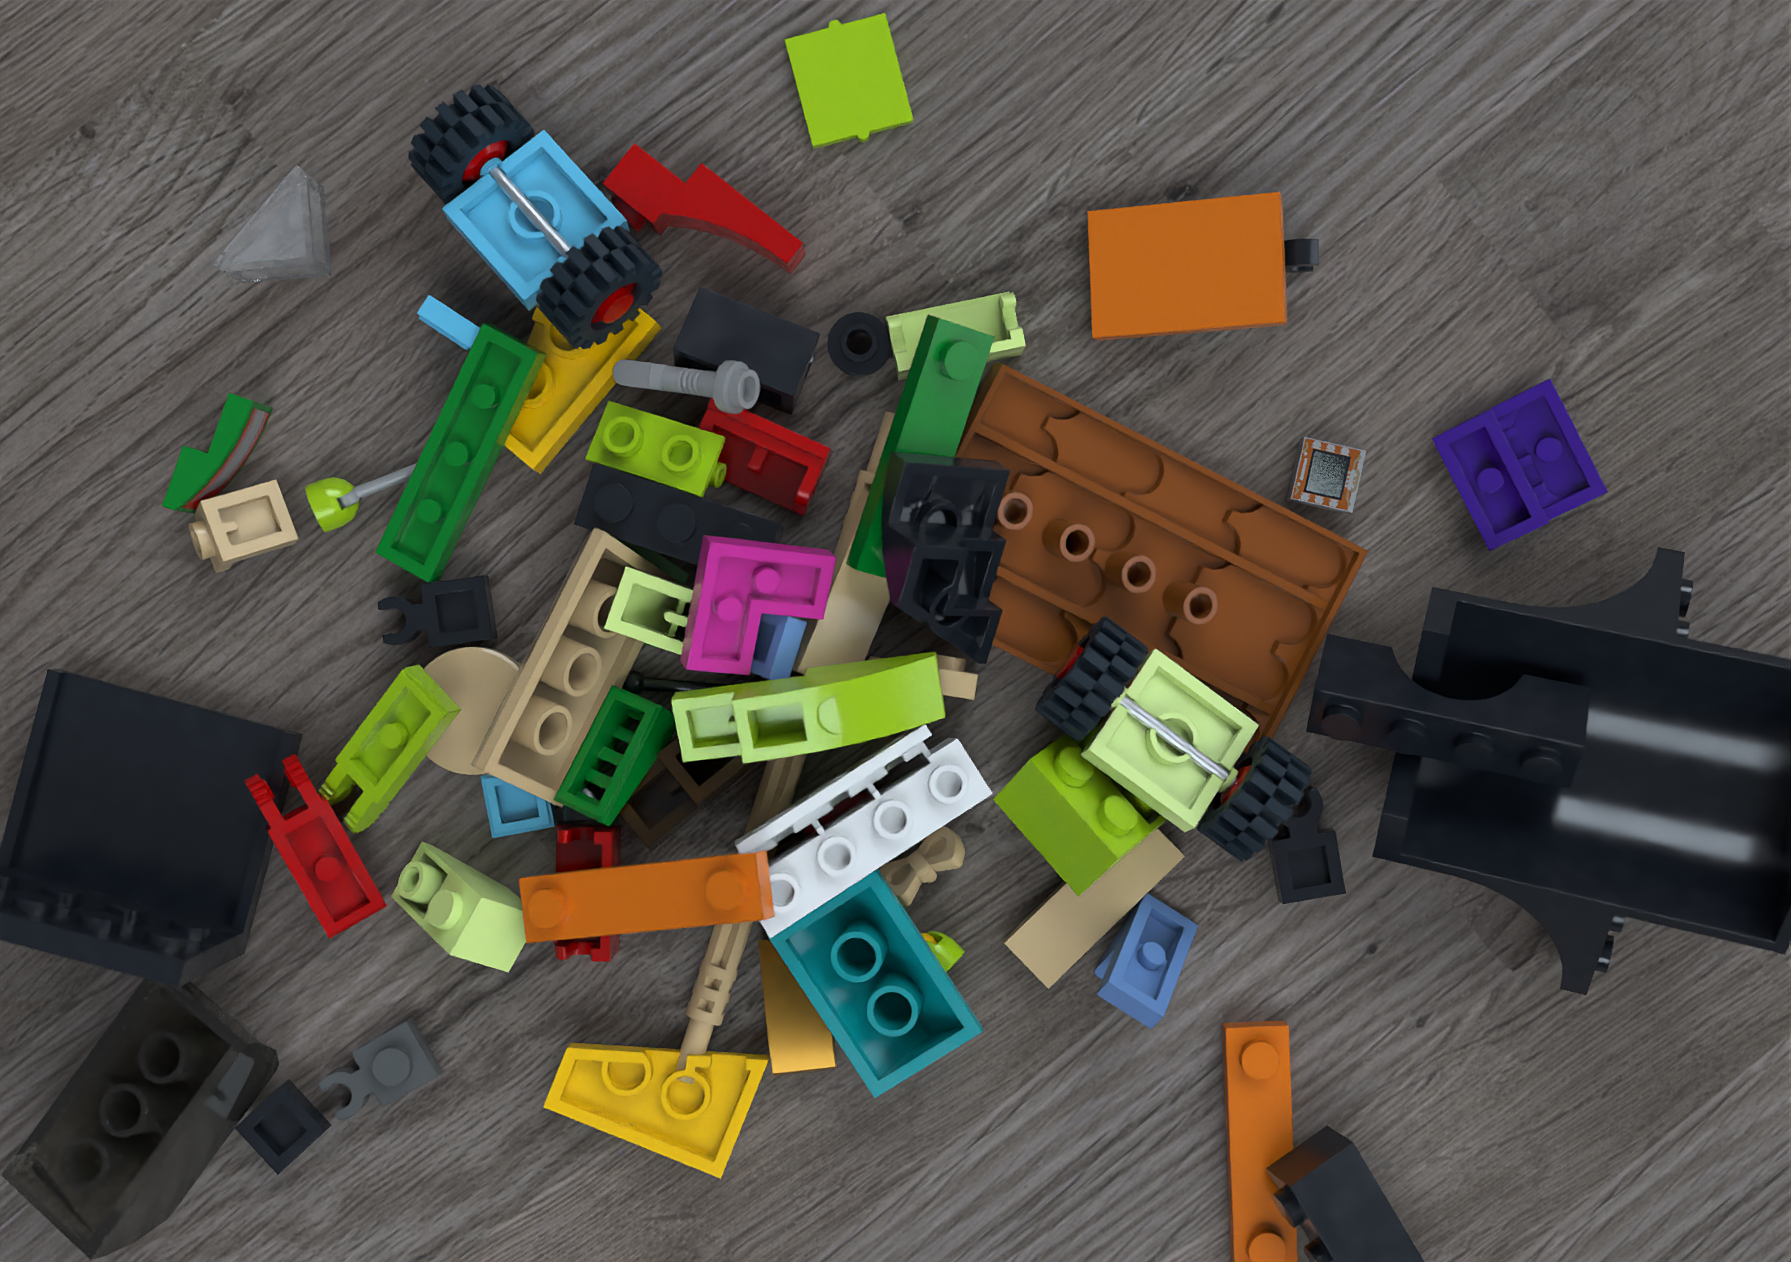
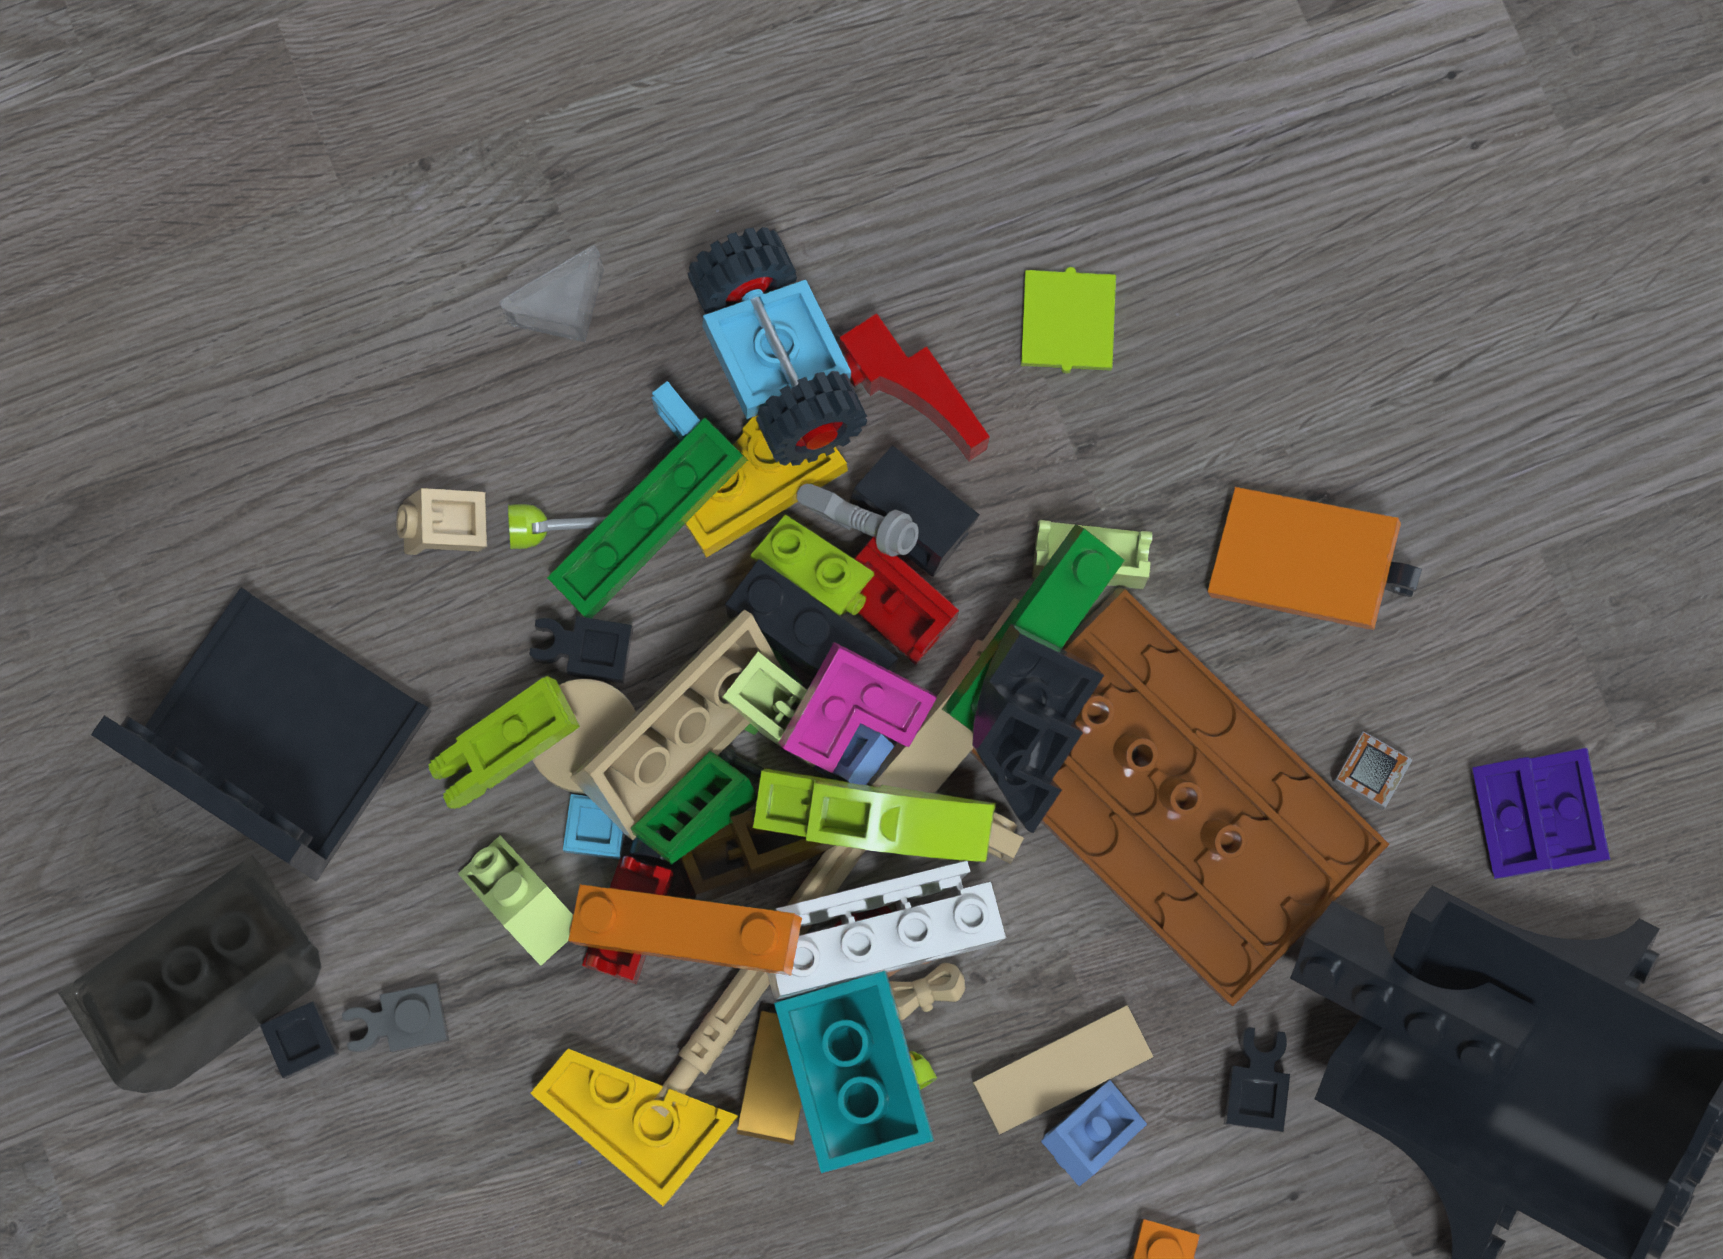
camera: 15 degrees right, 10 degrees down
(206, 474) = (431, 467): green slope -> none
(318, 853) = (414, 811): red hinge -> none
(862, 364) = (1002, 551): black plate -> none
(1076, 812) = (1085, 978): lime slope -> none
(1173, 741) = (1172, 943): plate -> none

